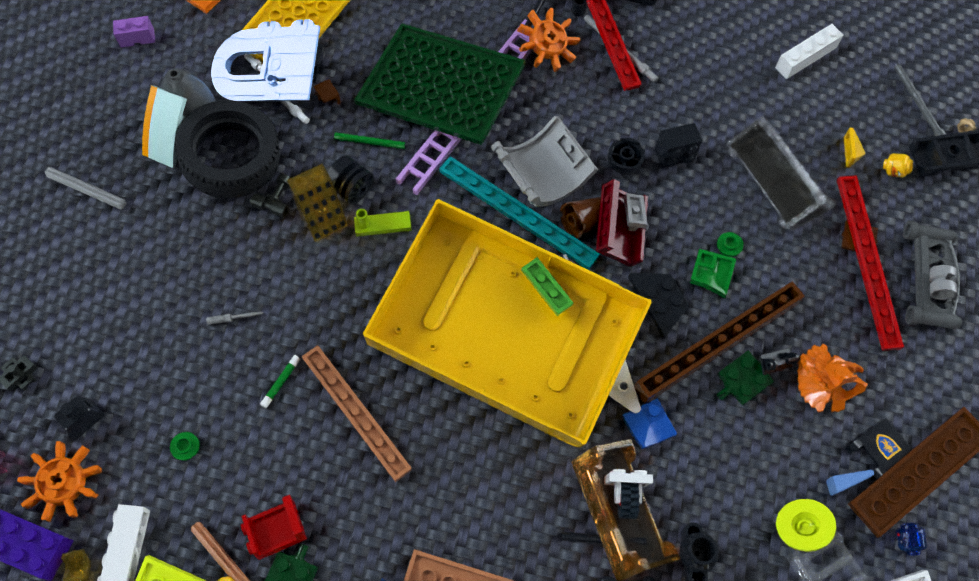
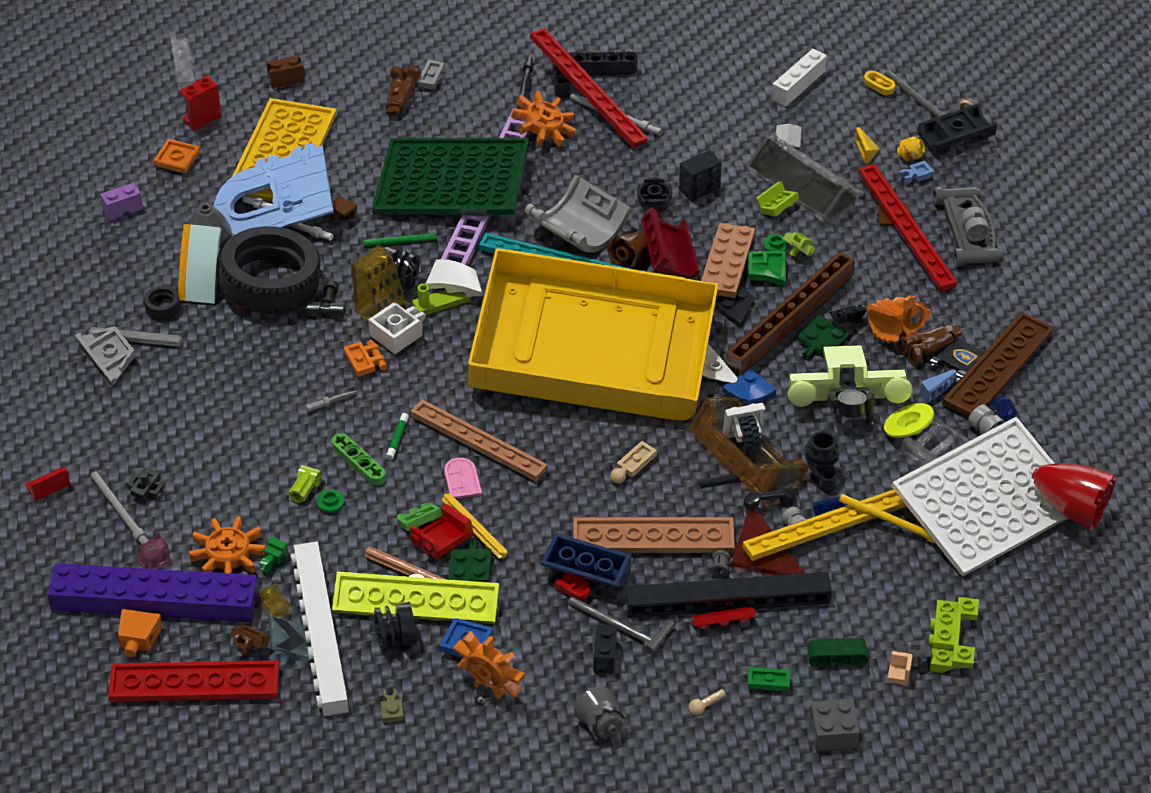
camera: 15 degrees left, 20 degrees down
(50, 200) = (108, 351): none -> light grey wing
(78, 416) = (222, 498): black torso -> none
(103, 500) = (275, 553): none -> green piece
(119, 145) = (165, 312): none -> black tyre
(171, 412) = (306, 480): none -> lime piece
(229, 401) = (361, 457): none -> bright green beam
(261, 497) = (417, 517): none -> bright green plate
(278, 274) = (359, 357): none -> orange plate
(313, 526) = (479, 531): none -> yellow axle
(324, 455) = (462, 478): none -> bright pink window
(325, 247) = (396, 327): none -> white hinge
(401, 203) = (454, 278): none -> white slope
(500, 489) = (633, 462): none -> tan plate
(547, 286) = (620, 297): bright green plate -> none
(635, 211) = (679, 234): light grey hinge -> none
(674, 255) = (728, 258): none -> nougat plate
(745, 192) = (775, 200): none -> lime bracket
(750, 490) = (854, 396): none -> yellowish green piece
(753, 253) = (800, 243): none -> lime piece
(779, 117) = (790, 134): none -> white panel
(854, 418) = (927, 342): none -> reddish brown piece
(886, 76) = (879, 82): none -> yellow plate
(890, 552) = (984, 420): none -> light grey wheel
(898, 193) = (918, 171): none -> medium blue plate

